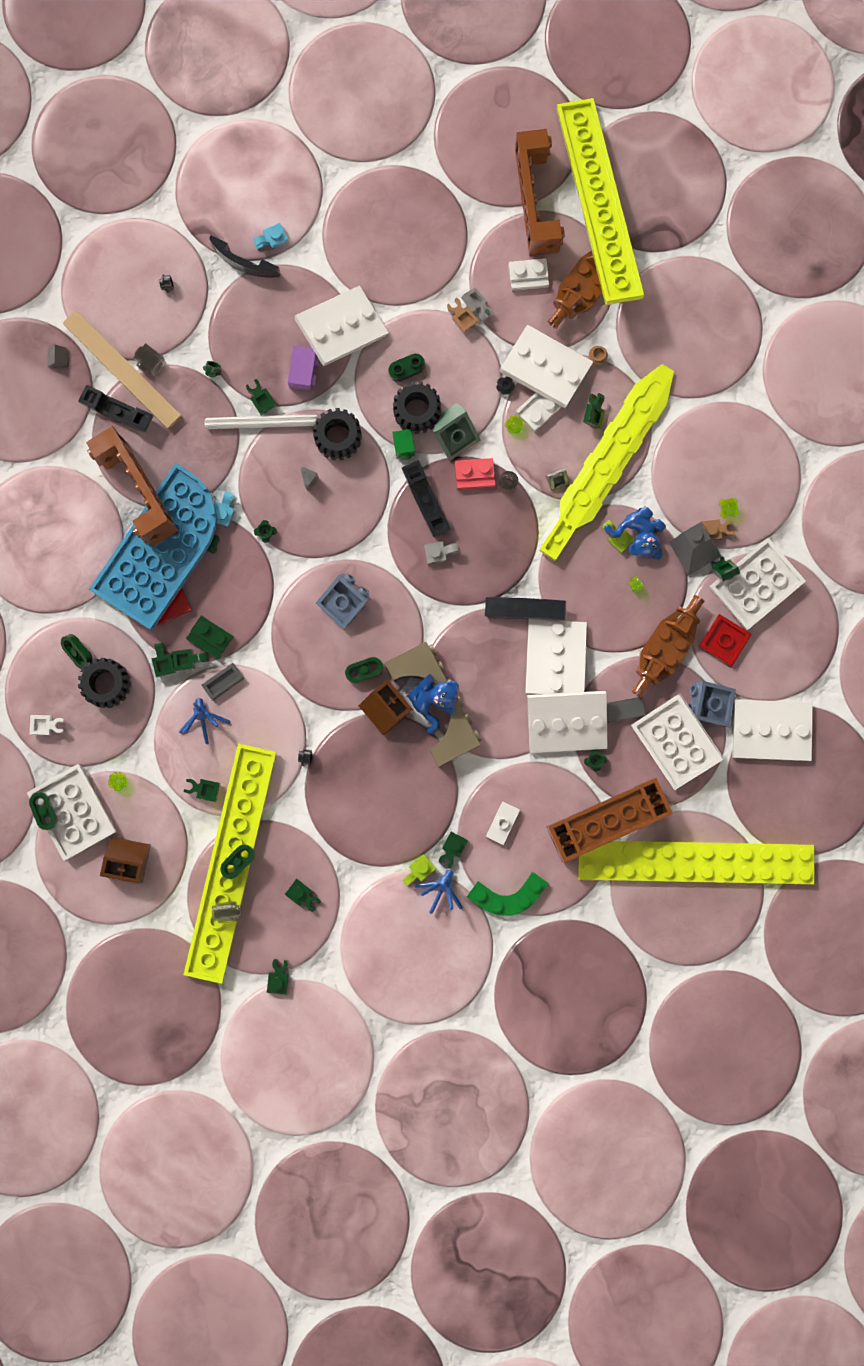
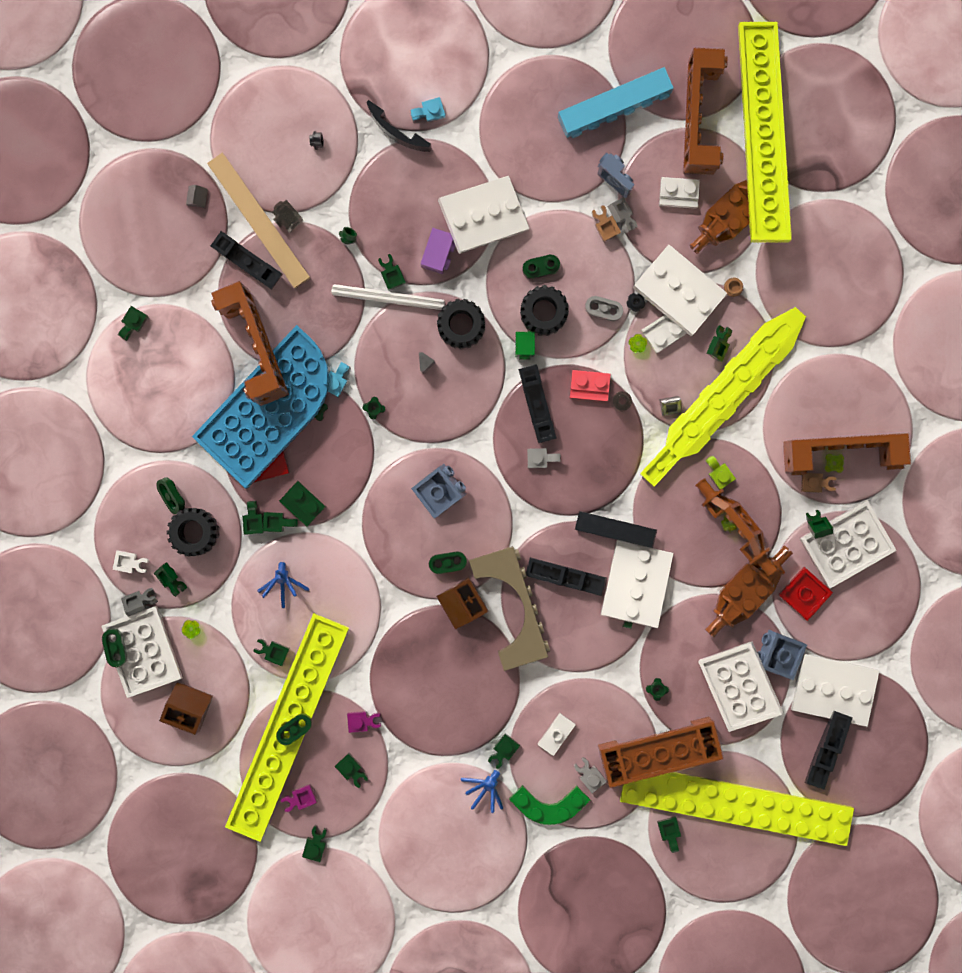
camera: 10 degrees right, 5 degrees up
(12, 486) = (133, 320): none -> dark green plate
(59, 763) = (136, 601): none -> dark grey plate
(86, 733) = (168, 577): none -> dark green plate
(222, 681) = (308, 549): dark grey tile -> none
(226, 912) = (275, 776): clear smoke brick -> none
(256, 931) = (301, 797): none -> magenta plate
(303, 845) = (359, 721): none -> magenta plate
(305, 757) = (376, 637): black plate -> none
(420, 868) = (469, 764): lime plate -> none
(442, 695) = (520, 604): blue animal -> none
(451, 199) = (615, 102): none -> medium azure brick
(455, 431) = (578, 340): sand green slope -> none
(459, 265) = (611, 171): none -> sand blue plate
(475, 394) = (604, 307): none -> light grey plate
(484, 663) = (566, 576): none -> black slope
(545, 860) = (591, 776): none -> light grey plate
(567, 721) = (637, 648): white plate -> none
(625, 709) = (694, 645): dark grey tile -> none
(633, 900) = (670, 831): none -> dark green plate
(646, 542) = (745, 485): blue animal -> none
(654, 582) = (746, 525): none -> dark orange plate
(695, 548) = (793, 499): dark grey slope -> none
(777, 790) = (828, 750): none -> black slope
(781, 478) = (893, 450): none -> dark orange plate

